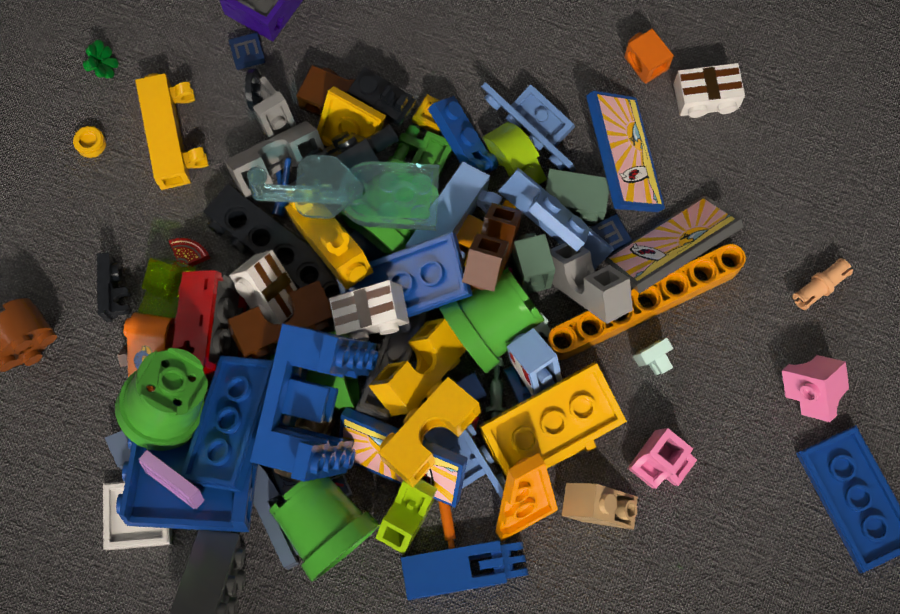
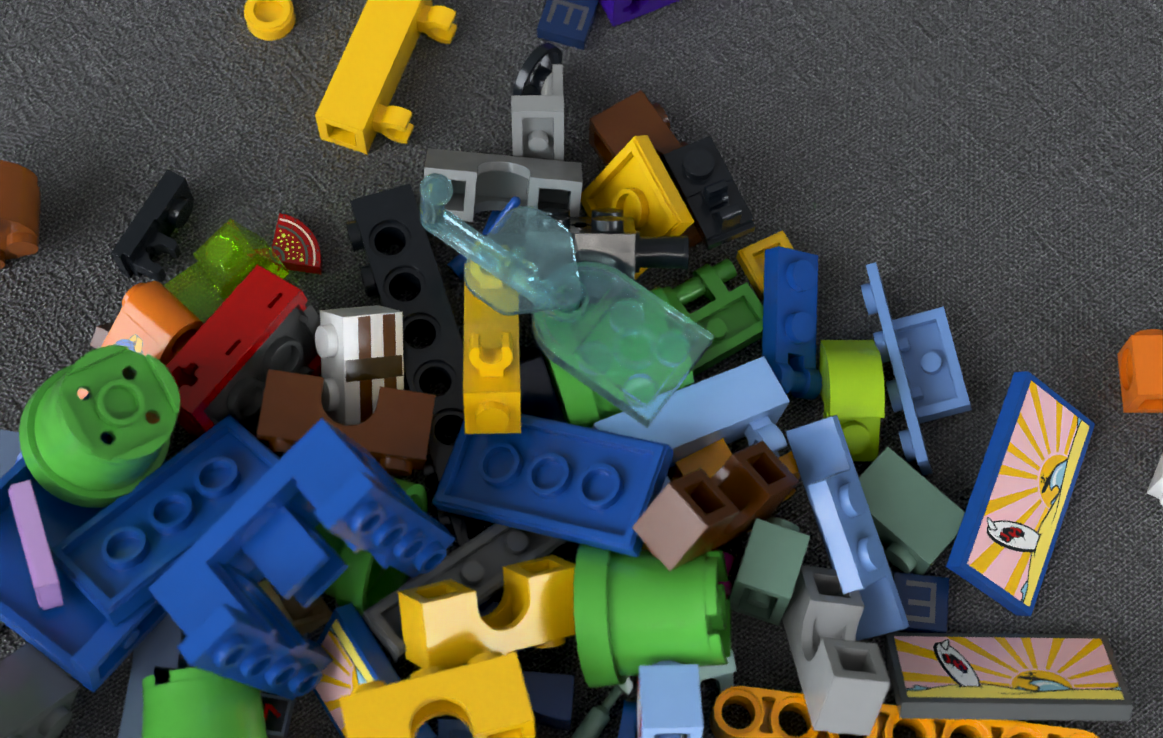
camera: 30 degrees right, 5 degrees down
(369, 311) = (475, 485): white brick -> none

